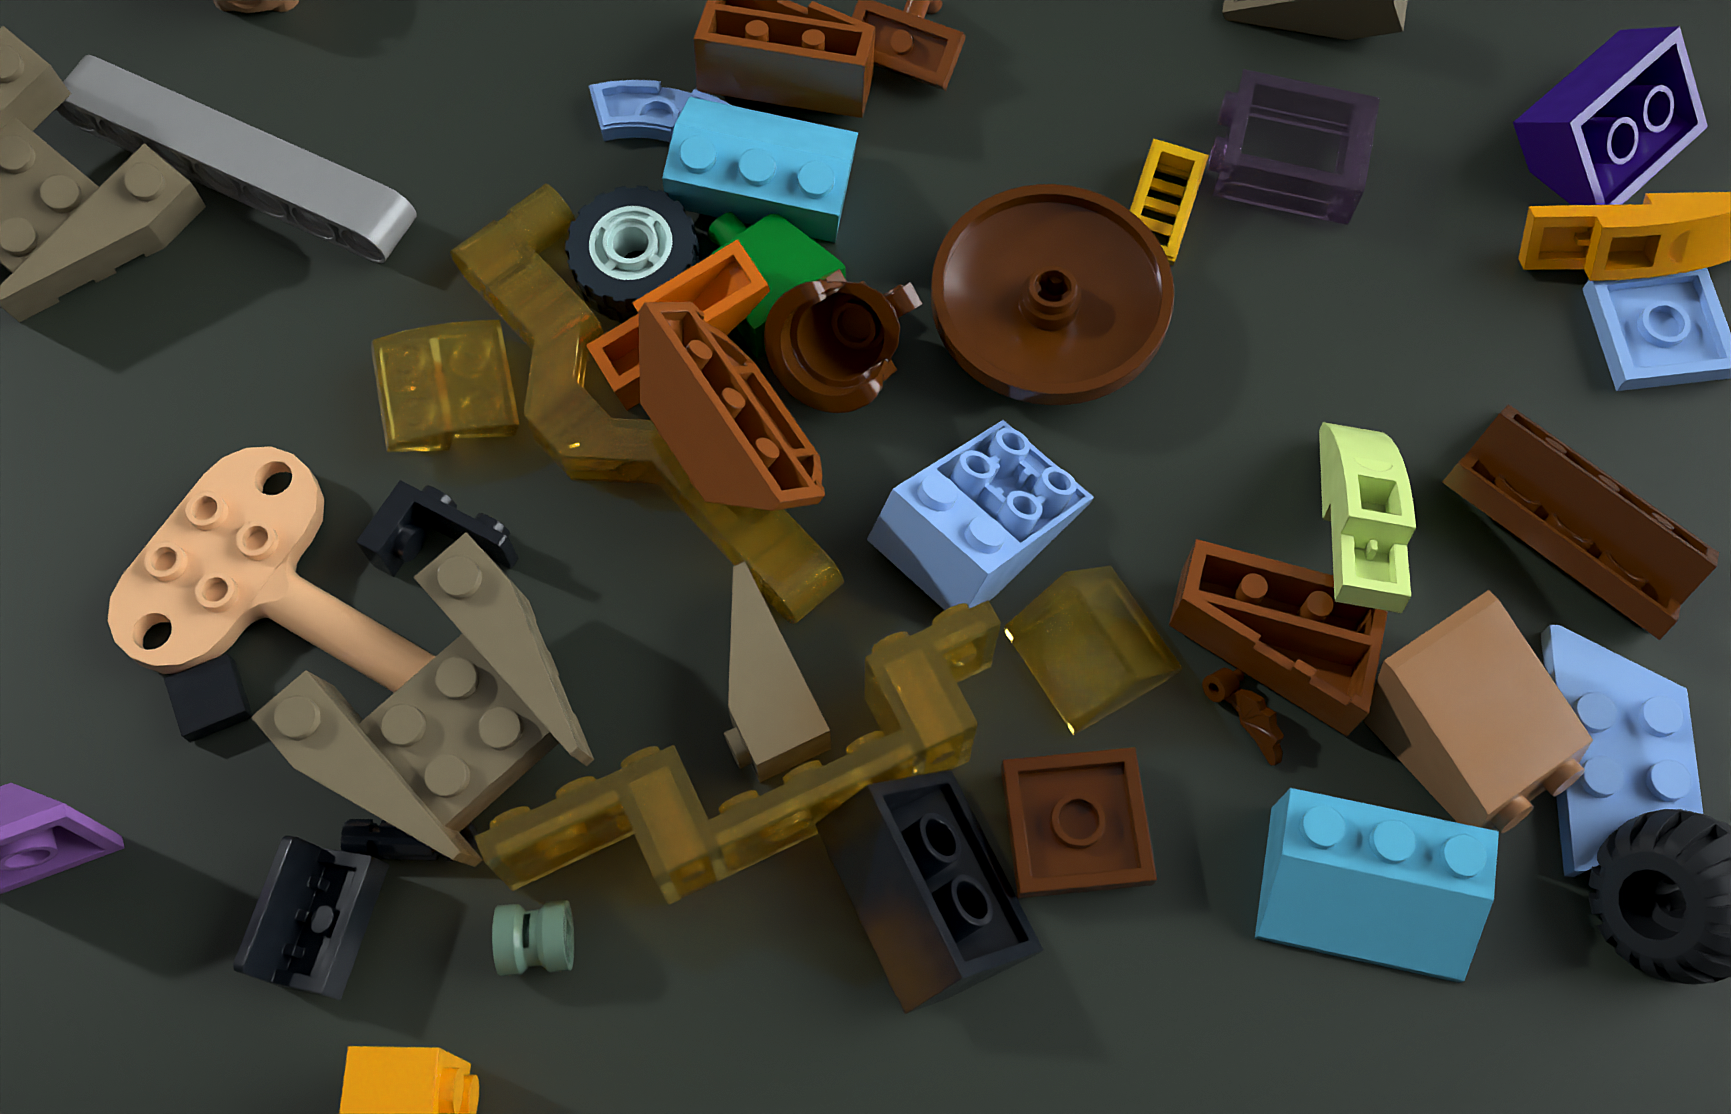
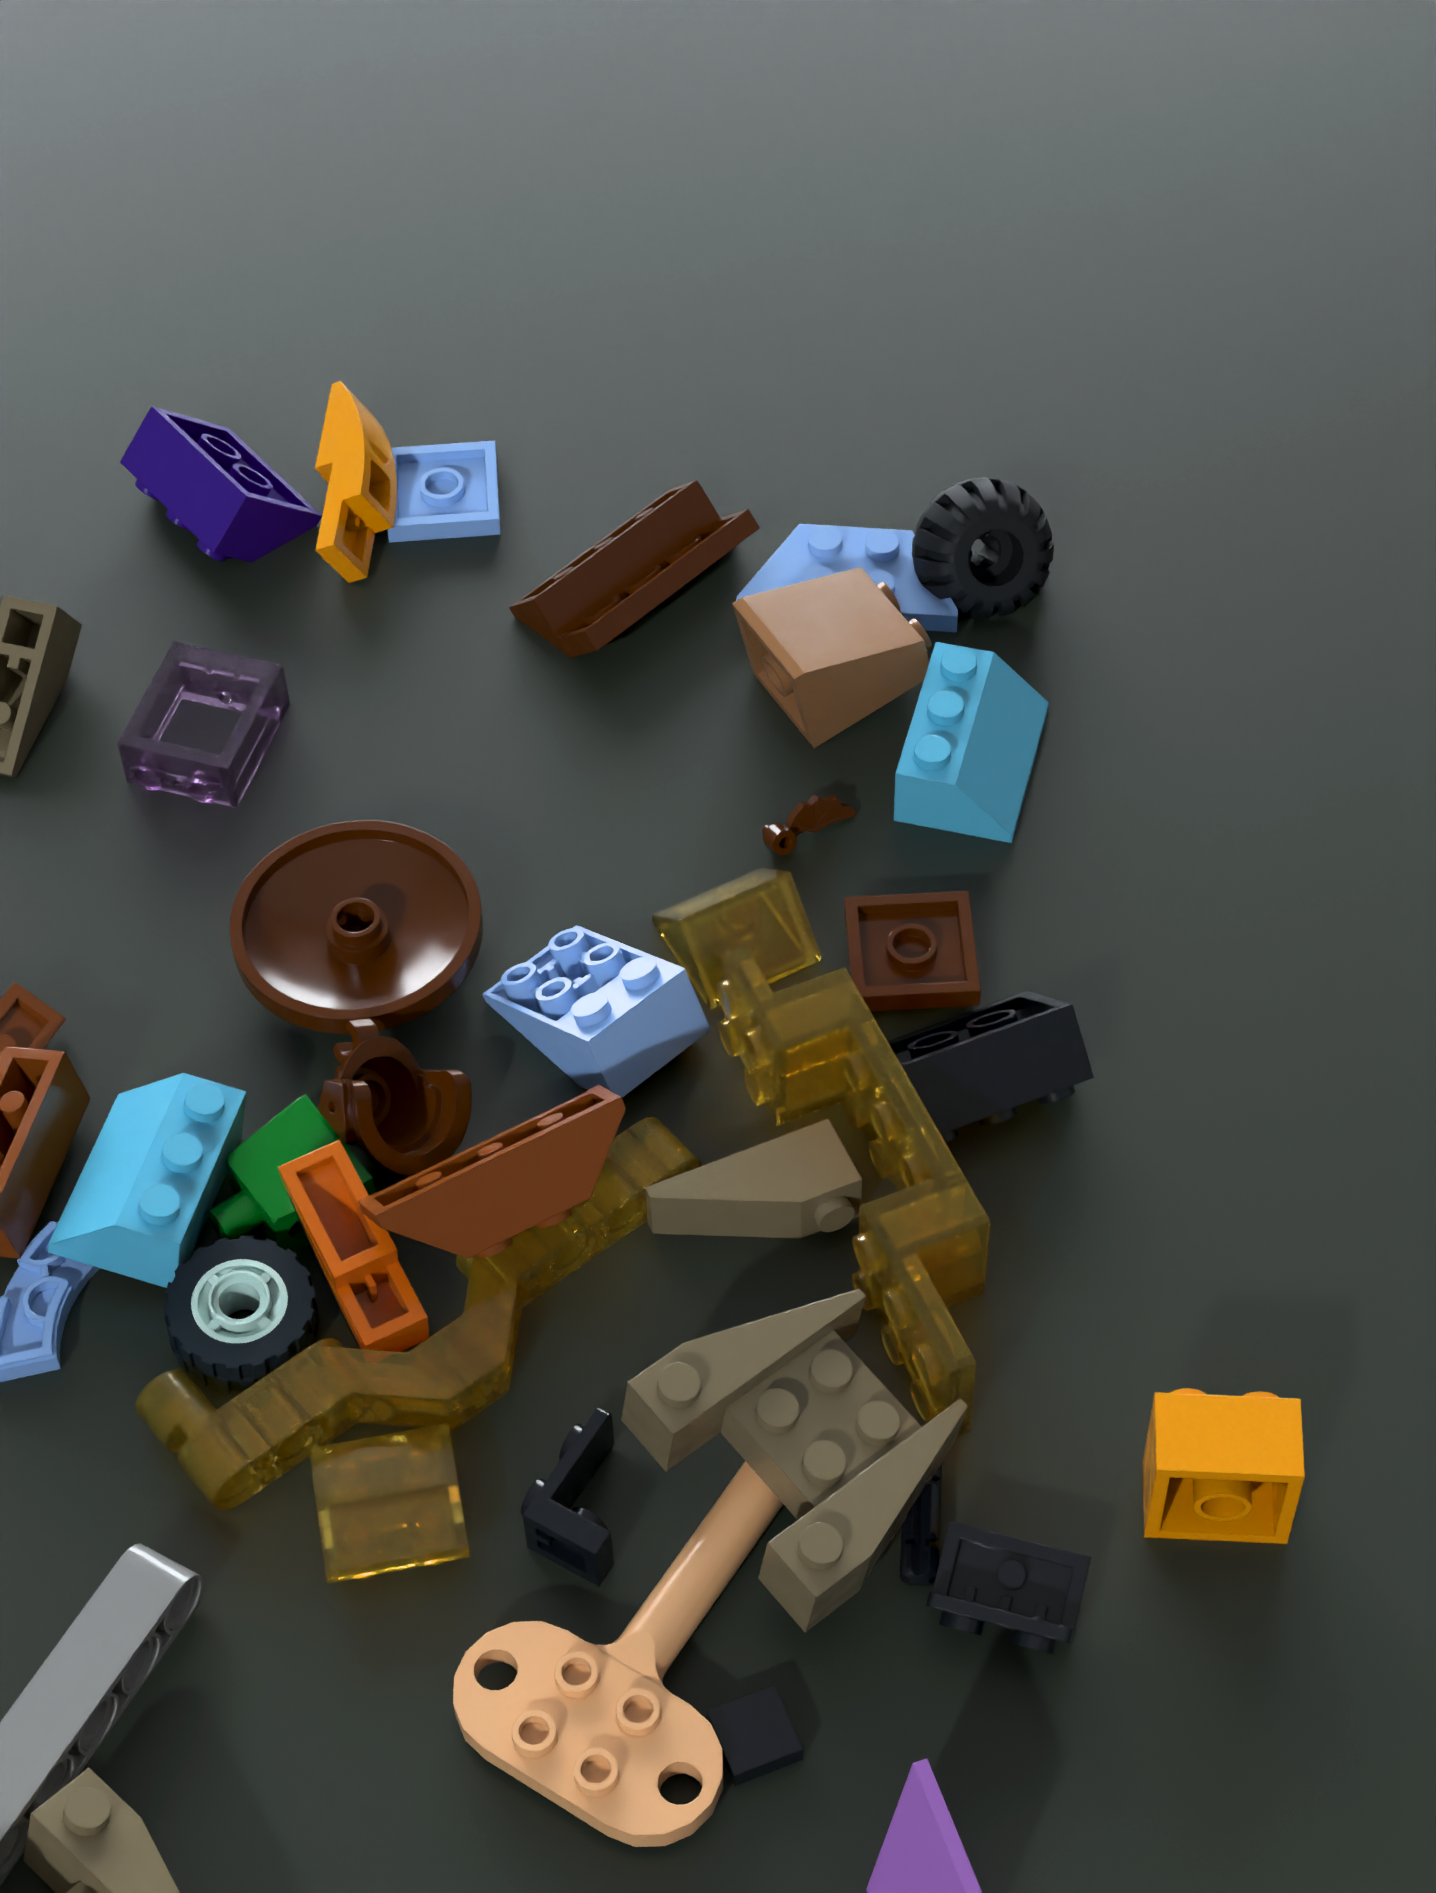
camera: 85 degrees left, 15 degrees down
(533, 938) = (1025, 1387): sand green wheel -> none
(1178, 163) = (234, 817): yellow slope -> none
(1282, 630) = (739, 773): dark orange wedge -> none
(1370, 516) = (631, 682): yellowish green slope -> none

